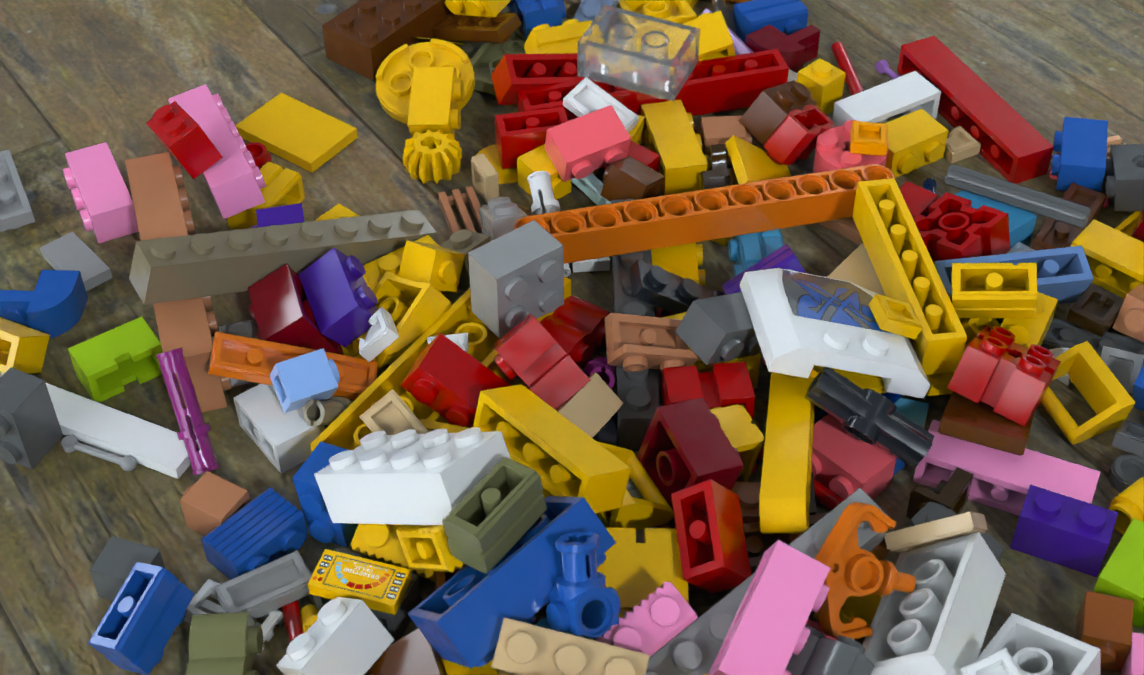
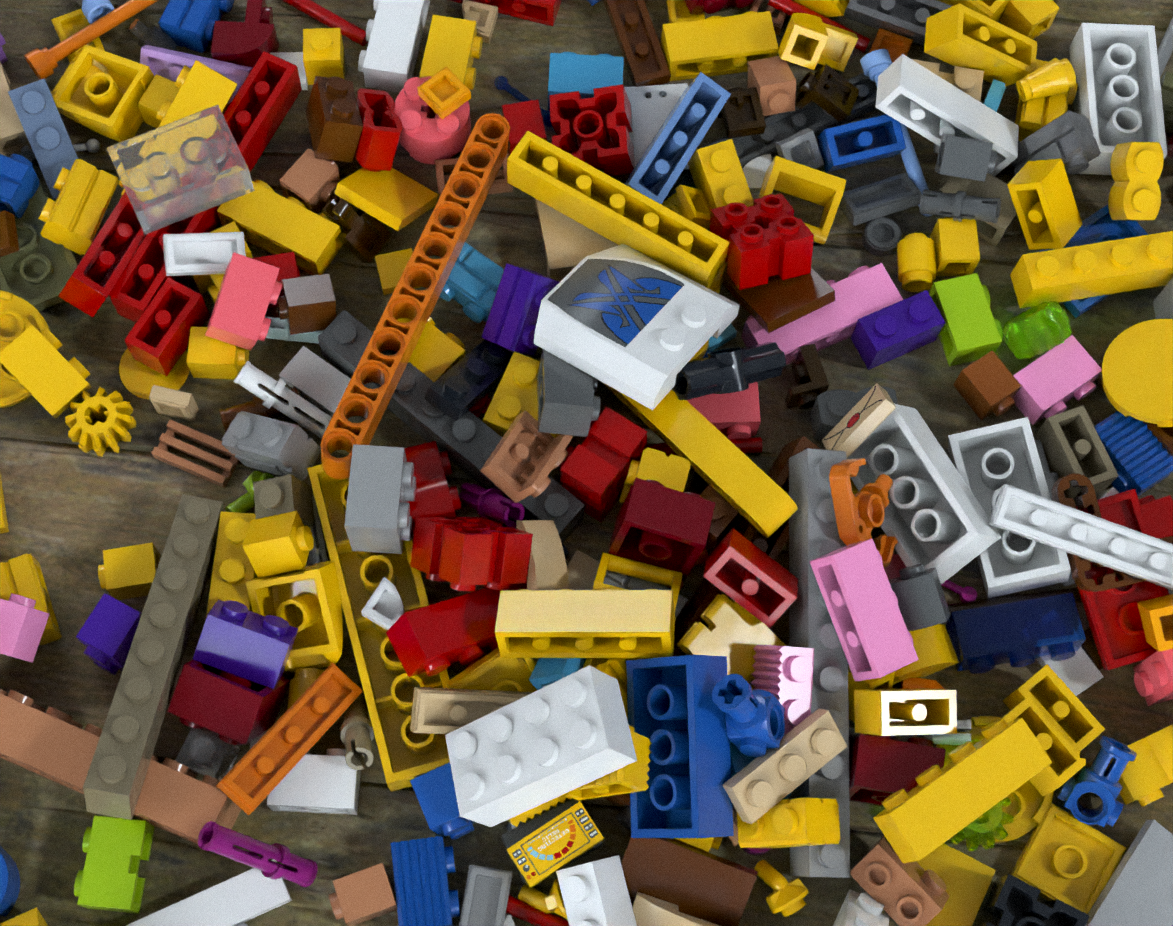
camera: 55 degrees left, 25 degrees up
(304, 379) = (327, 744): light blue brick -> none
(380, 335) = (318, 644): white tile -> none
(494, 515) = (652, 727): olive brick -> none
(895, 316) = (669, 271): yellow tile -> none
(994, 290) = (703, 180): yellow brick -> none
(1017, 196) = (597, 52): dark grey axle -> none

